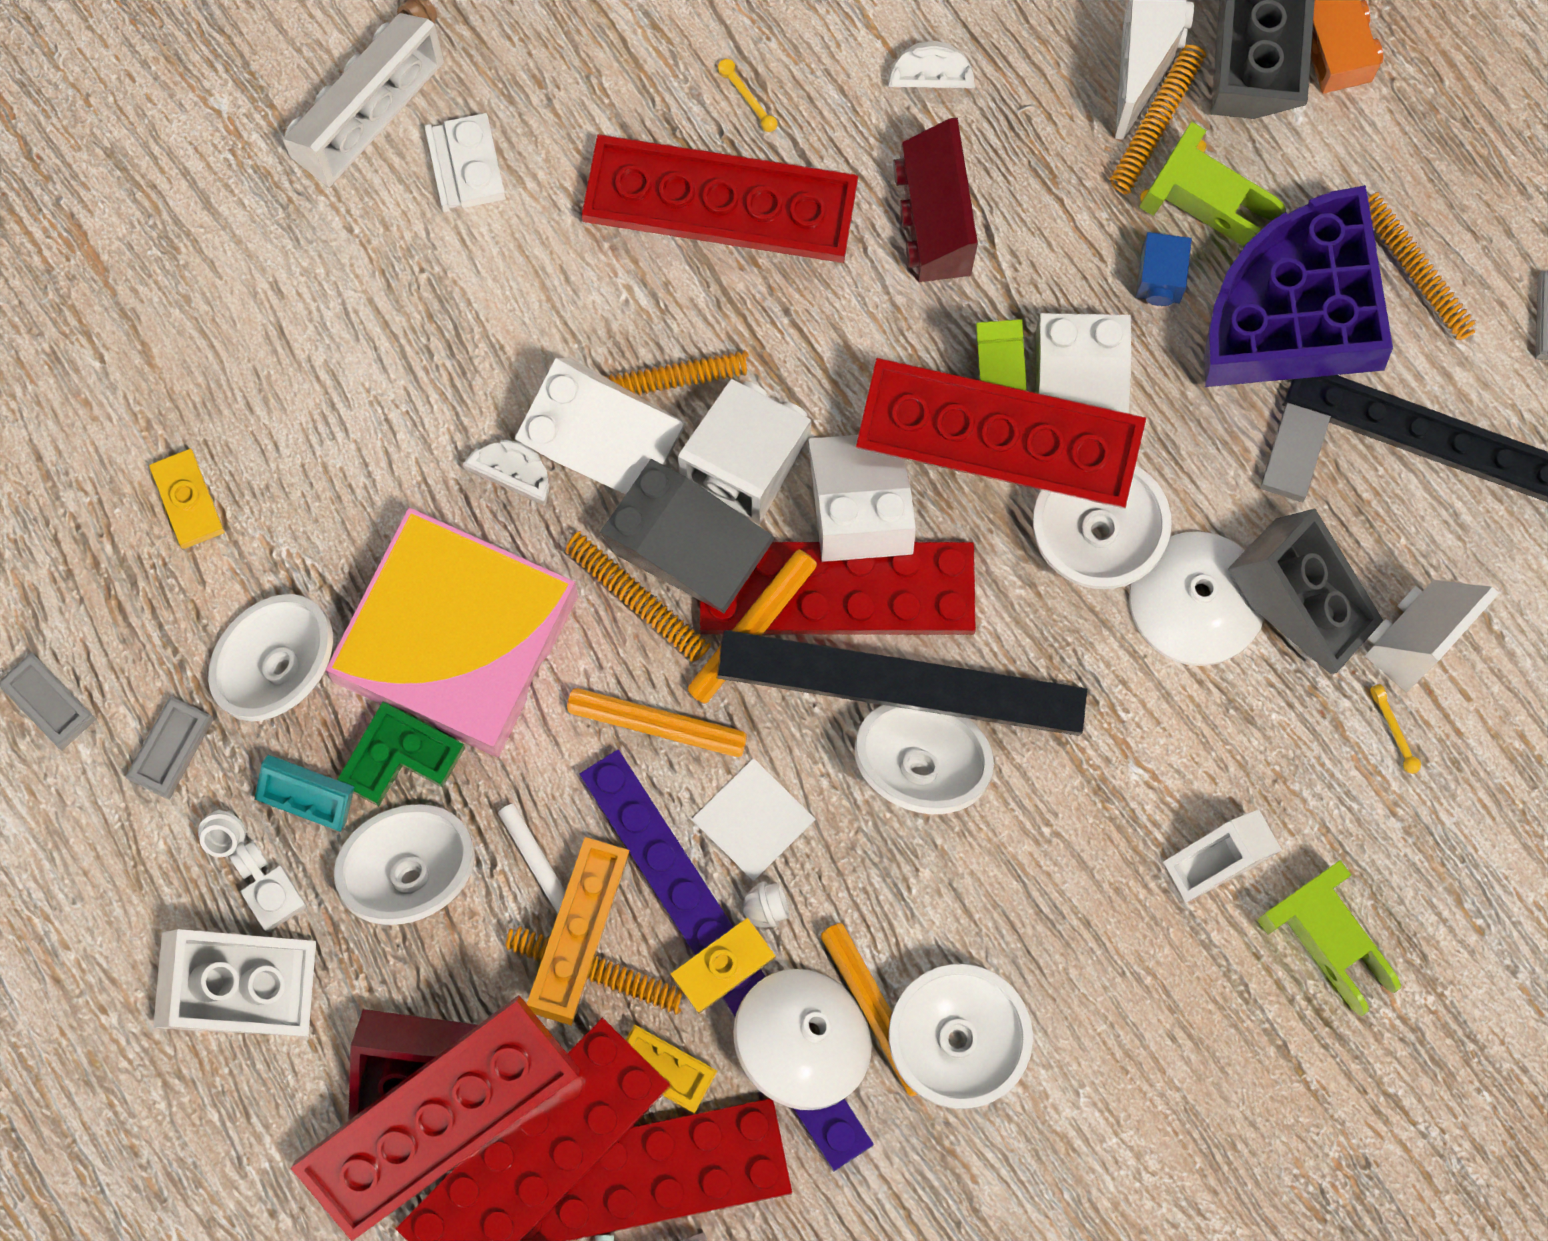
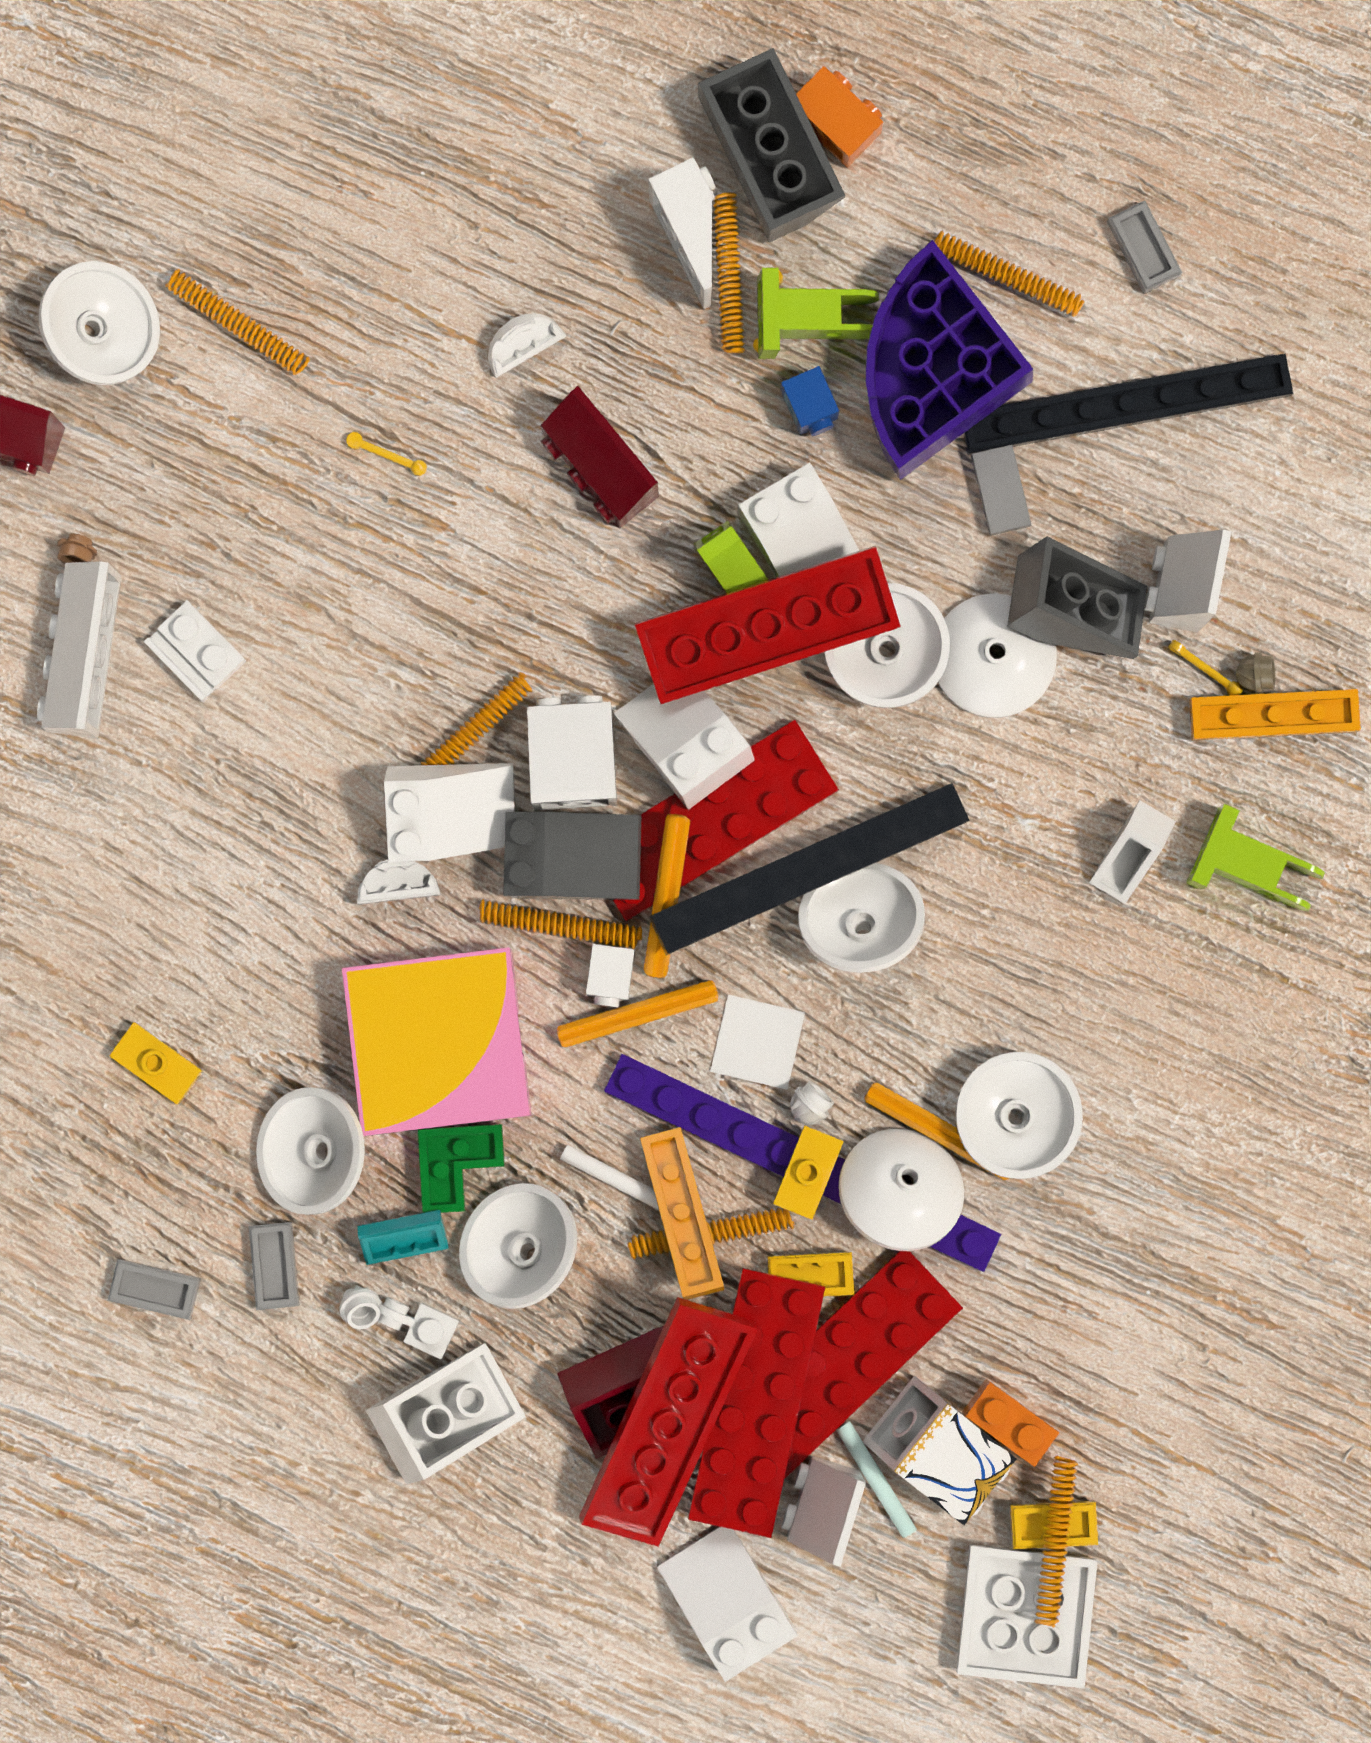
camera: 30 degrees left, 10 degrees up
(654, 668) = (610, 975): none -> white brick
(720, 198) = (420, 557): red plate -> none
(1438, 810) = (1274, 714): none -> light orange plate
(1443, 760) = (1256, 673): none -> dark tan plate

